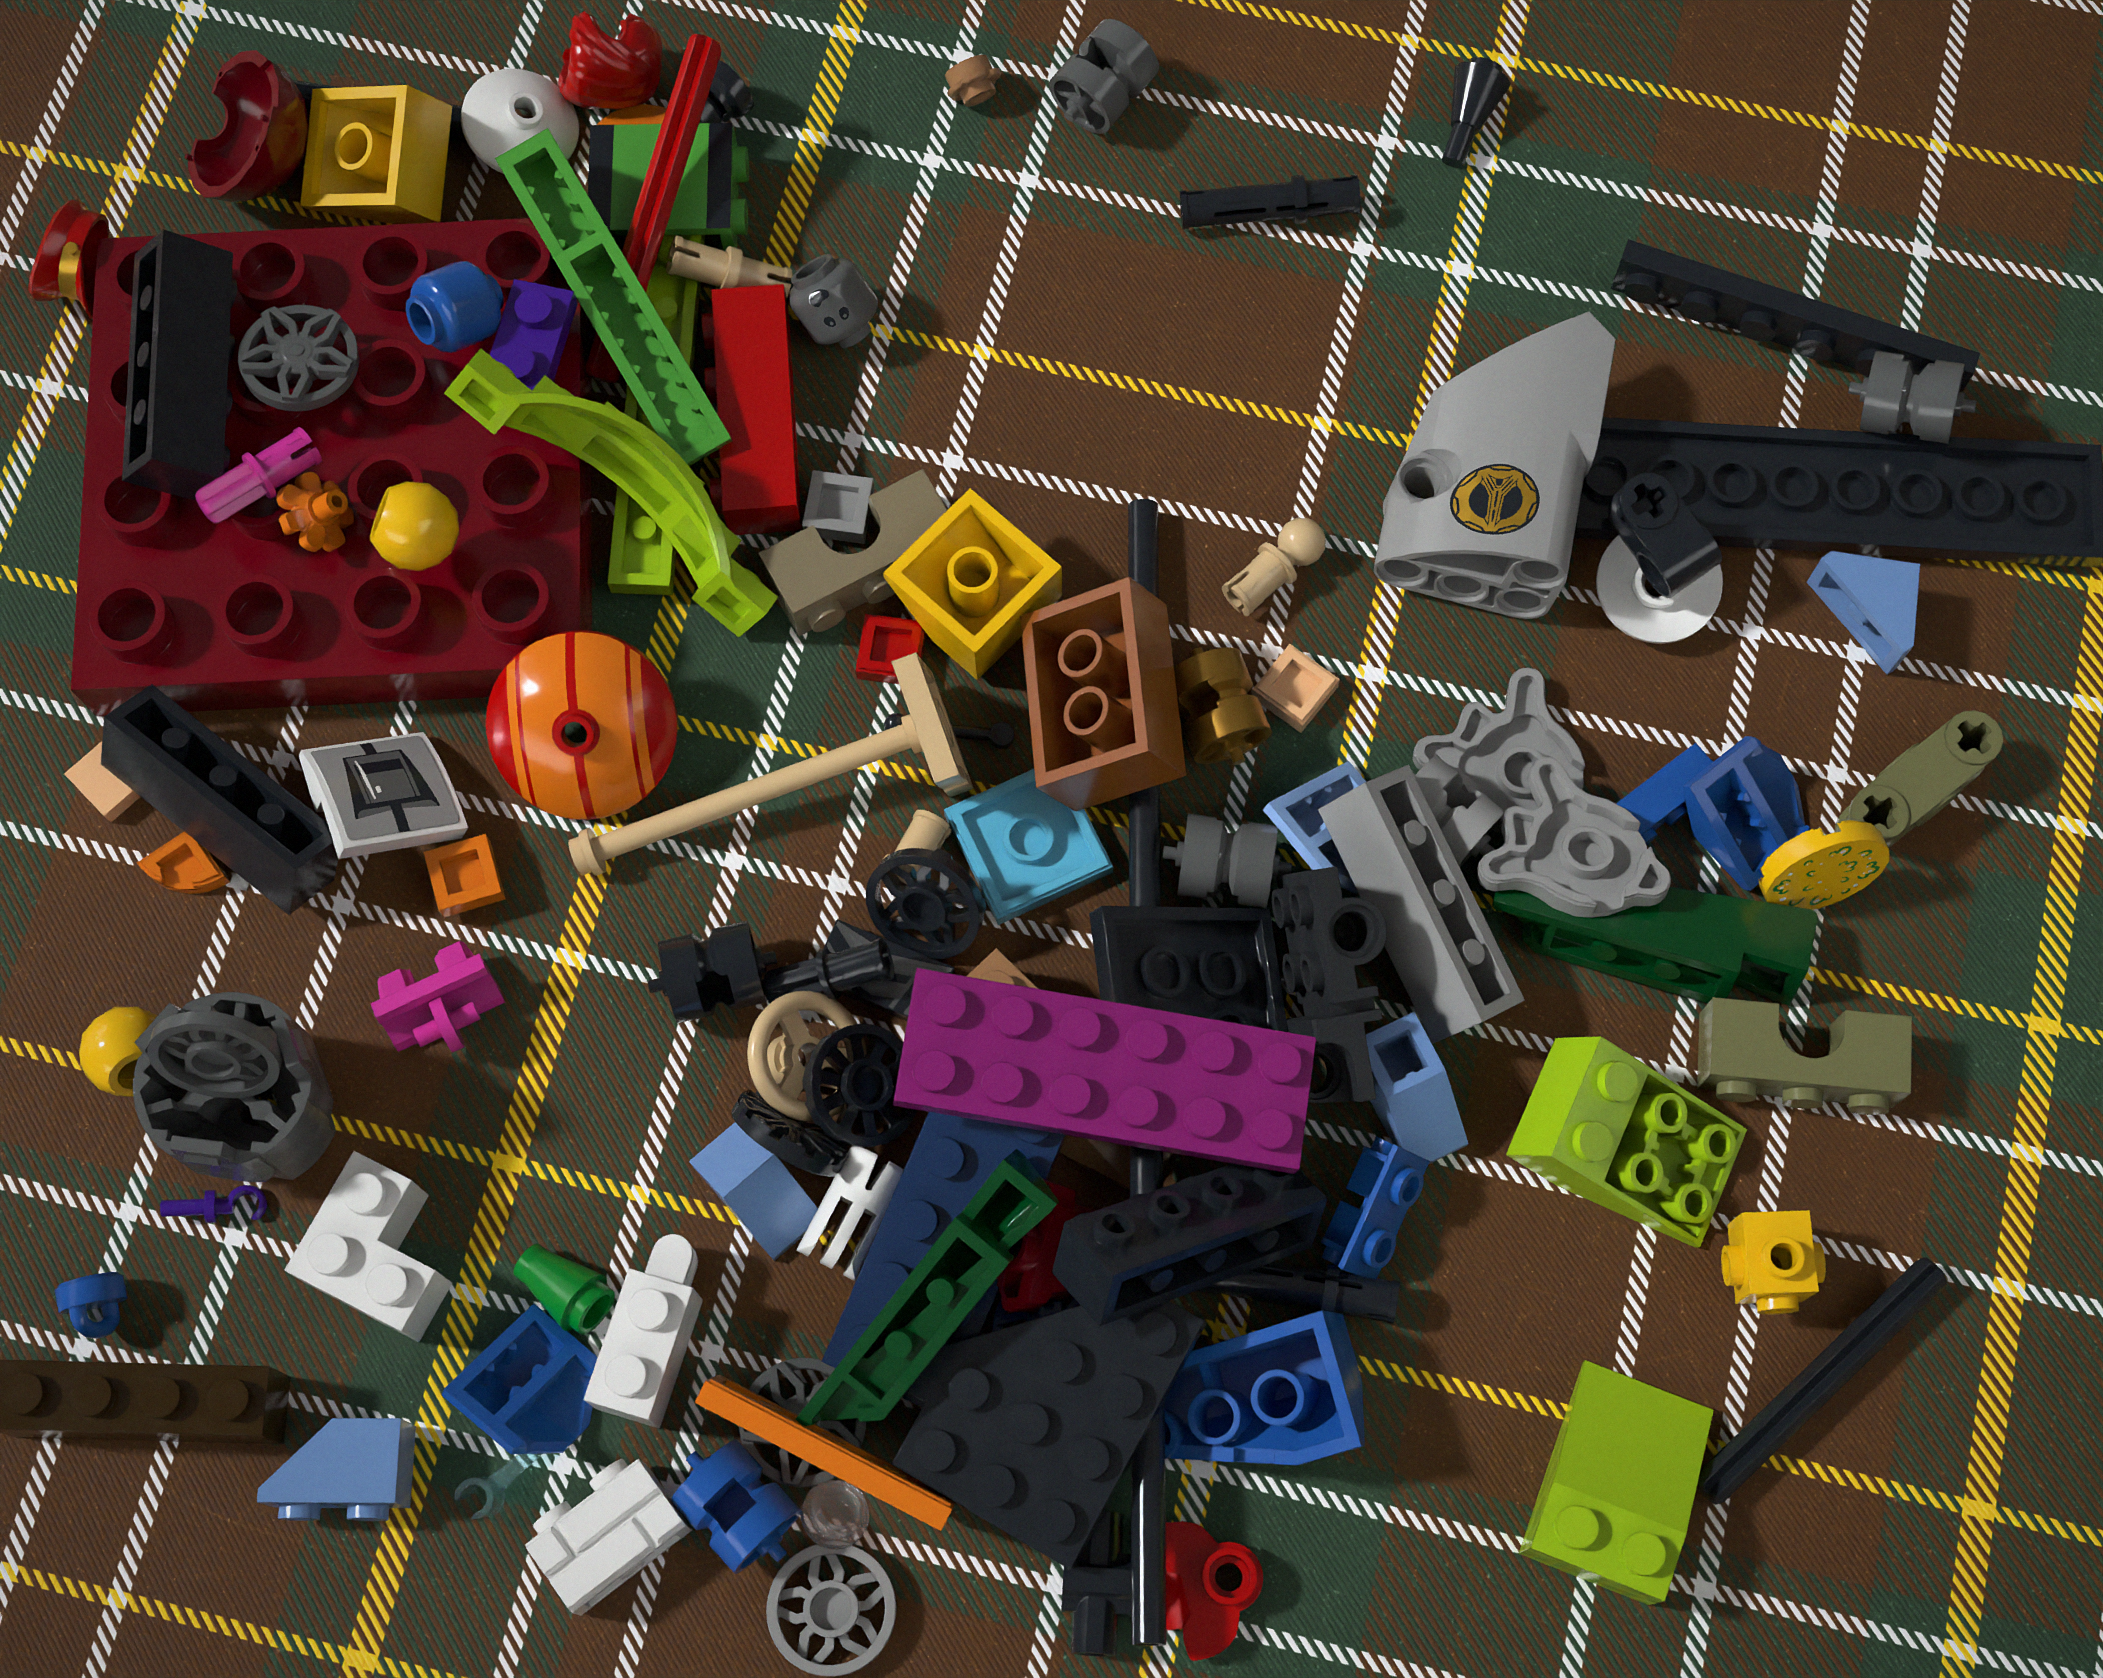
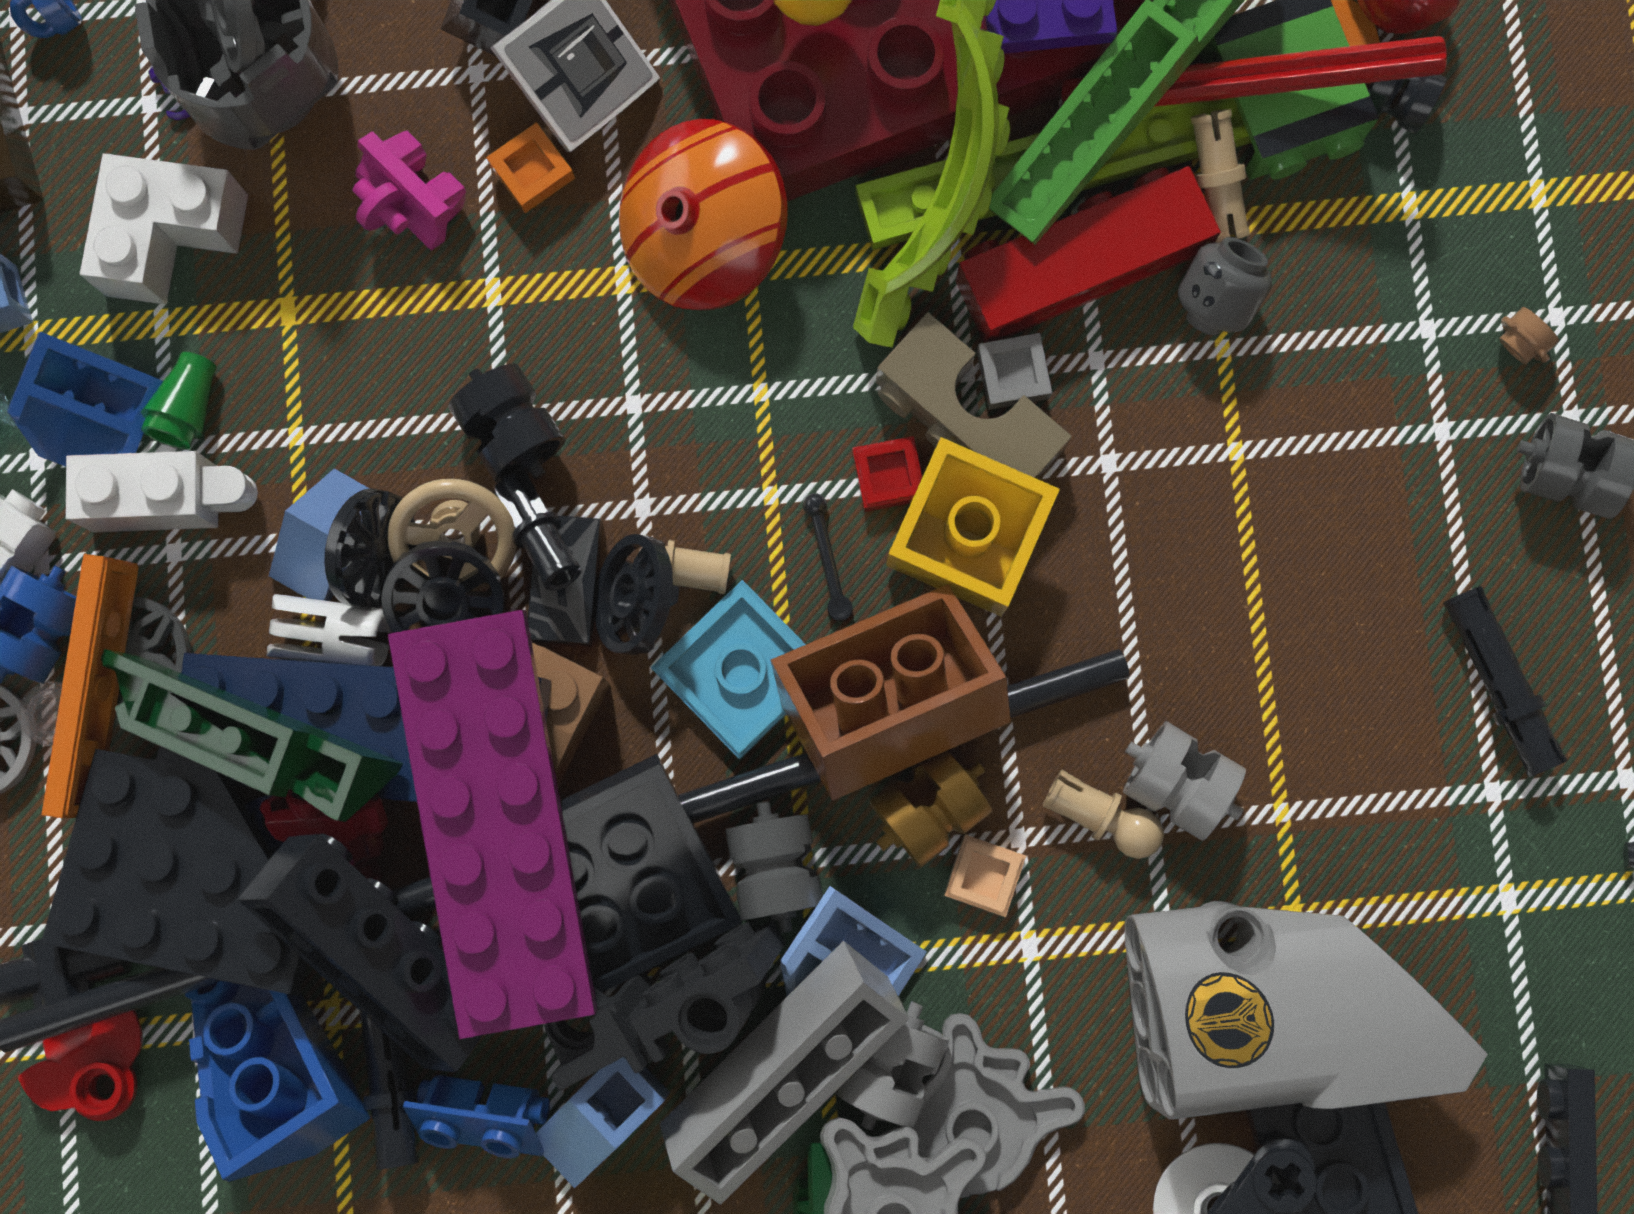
camera: 70 degrees right, 10 degrees up
(923, 730) = (801, 534): tan tile -> none
(1259, 491) = (1186, 782): none -> light grey wheel

